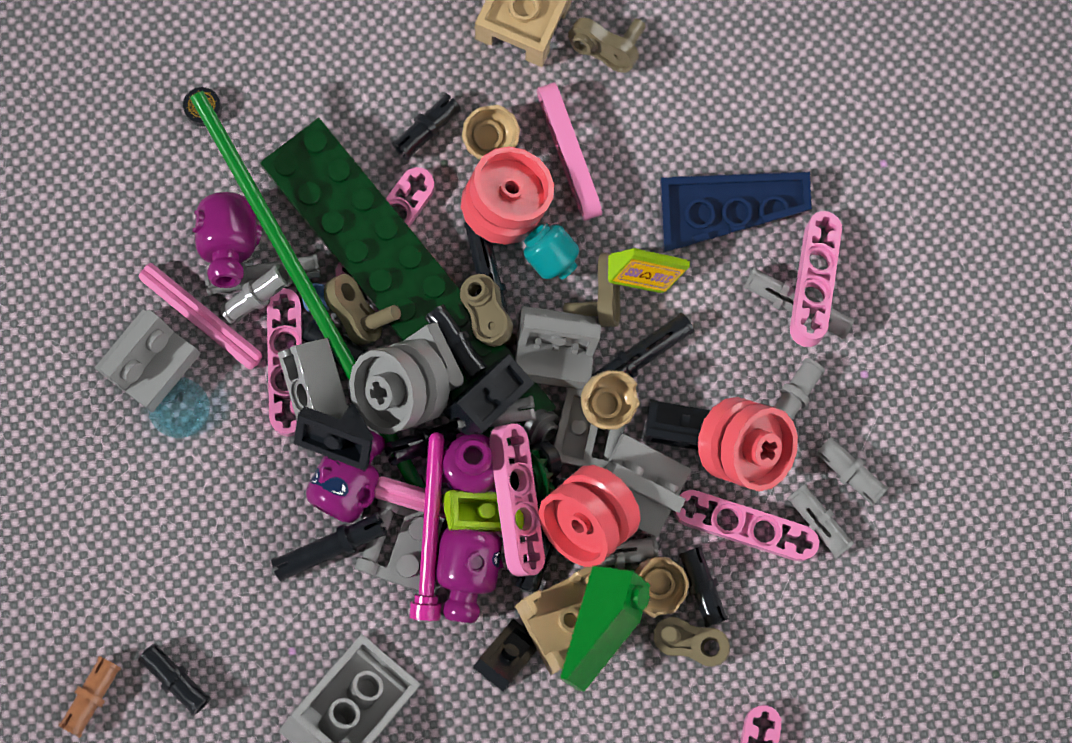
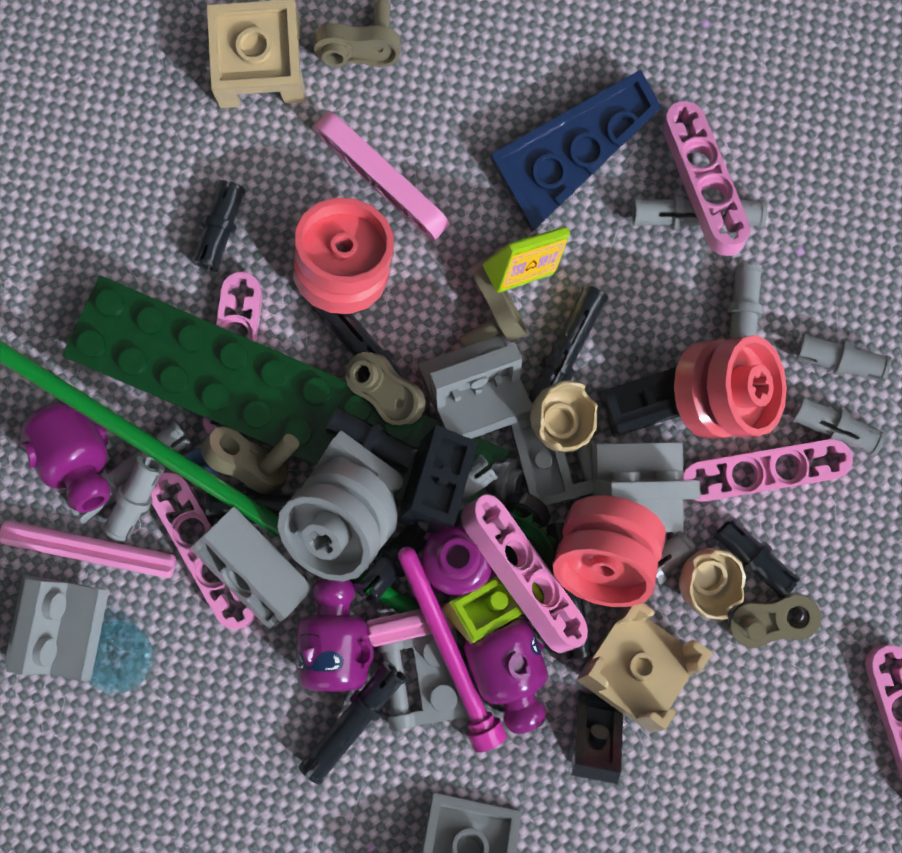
camera: 25 degrees left, 5 degrees up
(339, 439) = (308, 611): black slope -> none
(490, 129) = (287, 195): tan hair -> none
(551, 251) = (418, 290): teal head -> none
(604, 622) = (685, 652): green slope -> none

